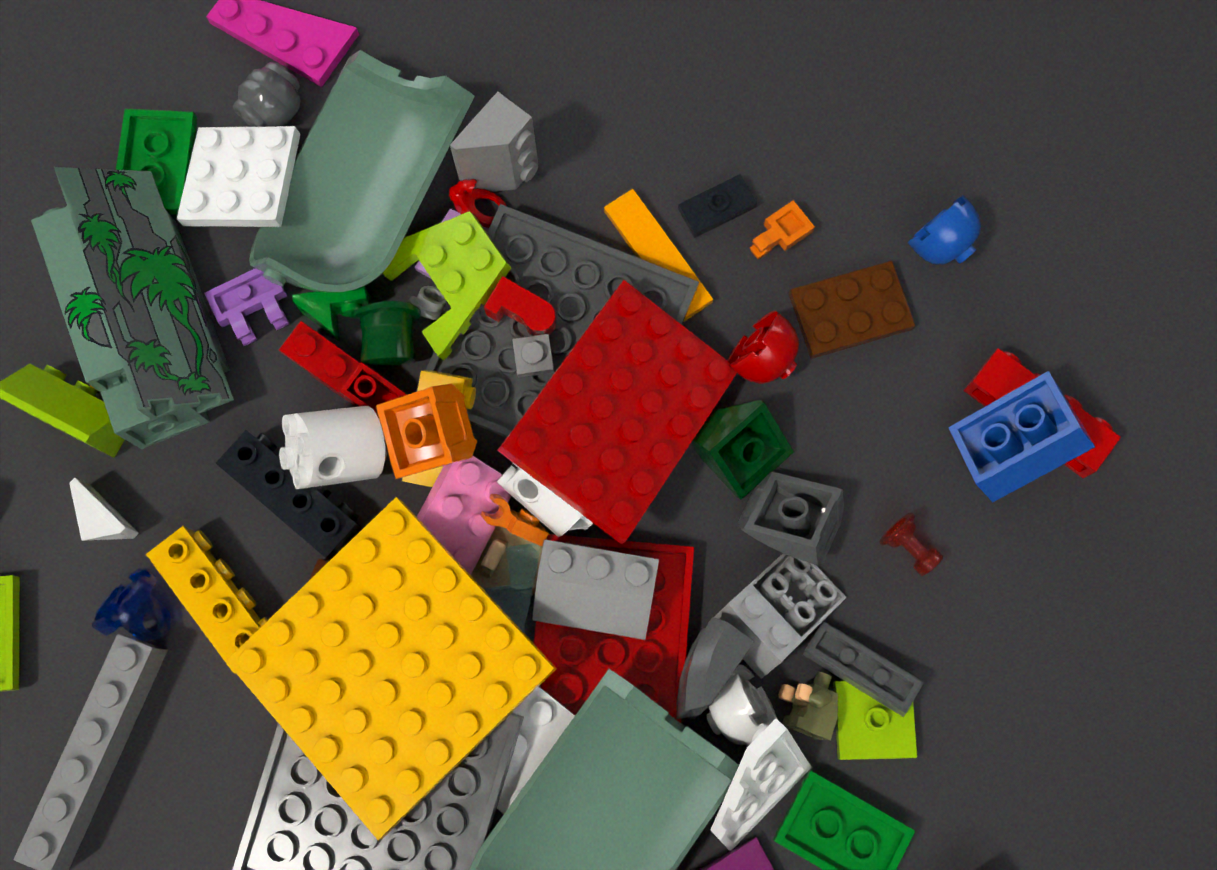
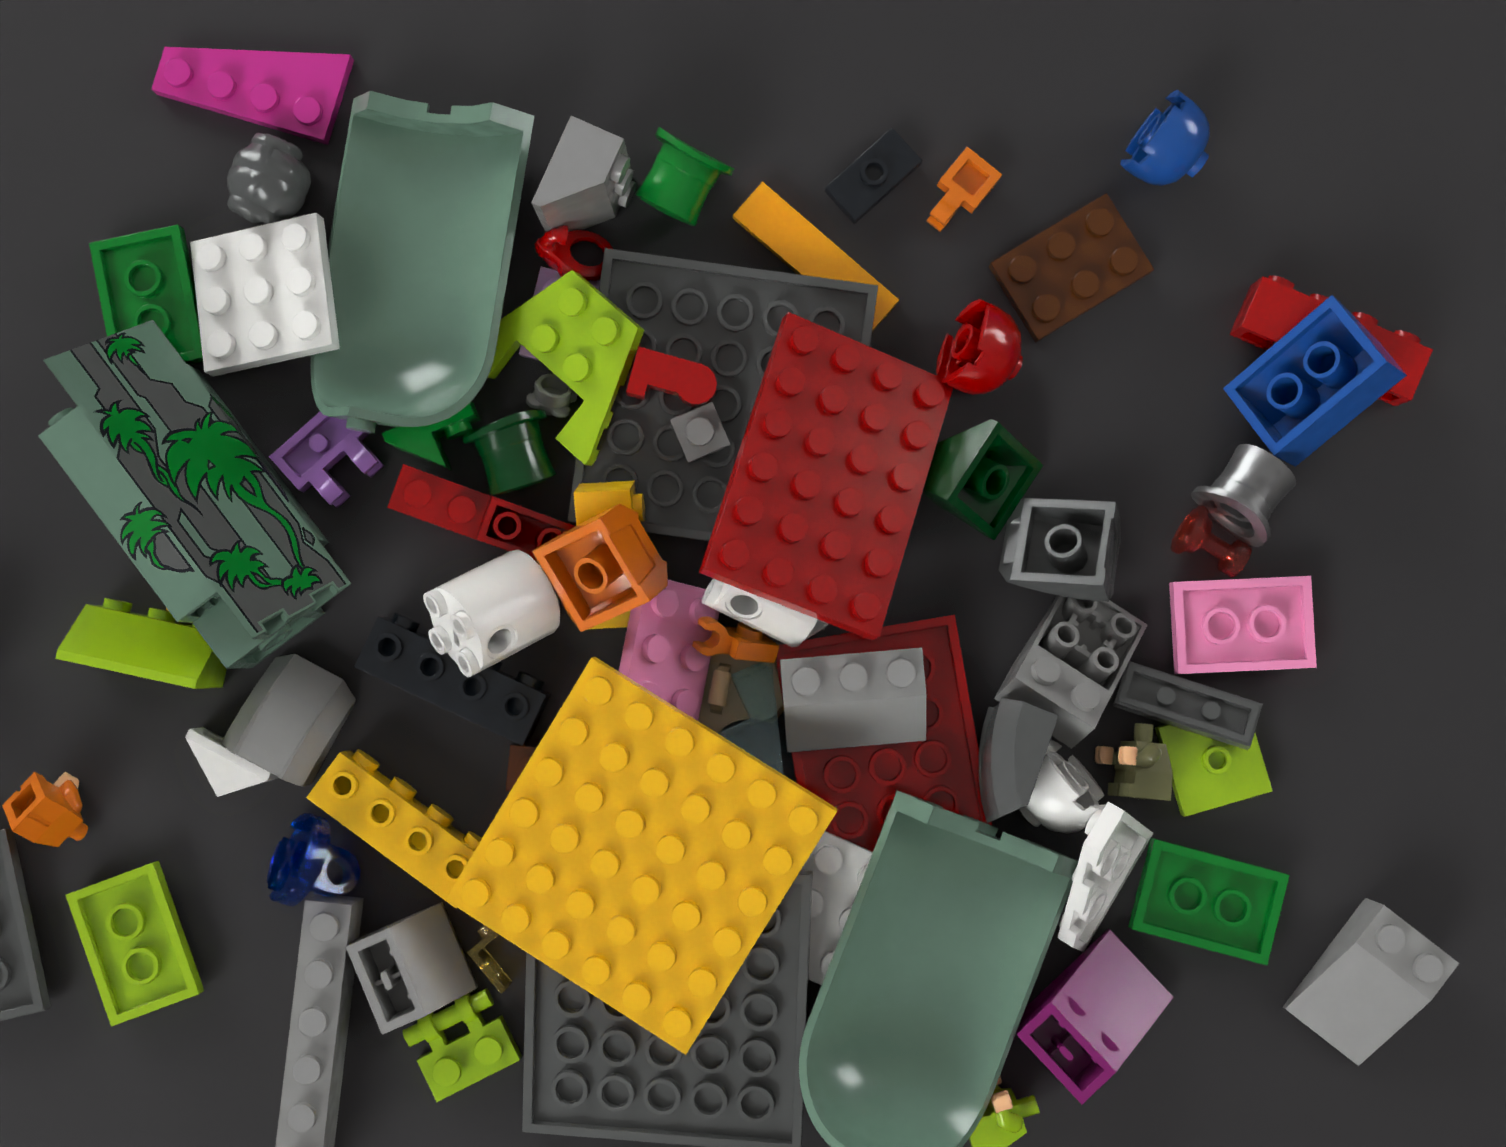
camera: 15 degrees left, 10 degrees up
(156, 494) = (291, 719): none -> light grey slope
(184, 712) = (411, 967): none -> light grey slope
(208, 801) = (468, 1057): none -> lime plate
(245, 725) = (487, 962): none -> clear yellow bracket
(571, 169) = (680, 179): none -> green piece
(923, 616) = (1242, 625): none -> bright pink plate
(948, 511) = (1247, 493): none -> flat silver piece

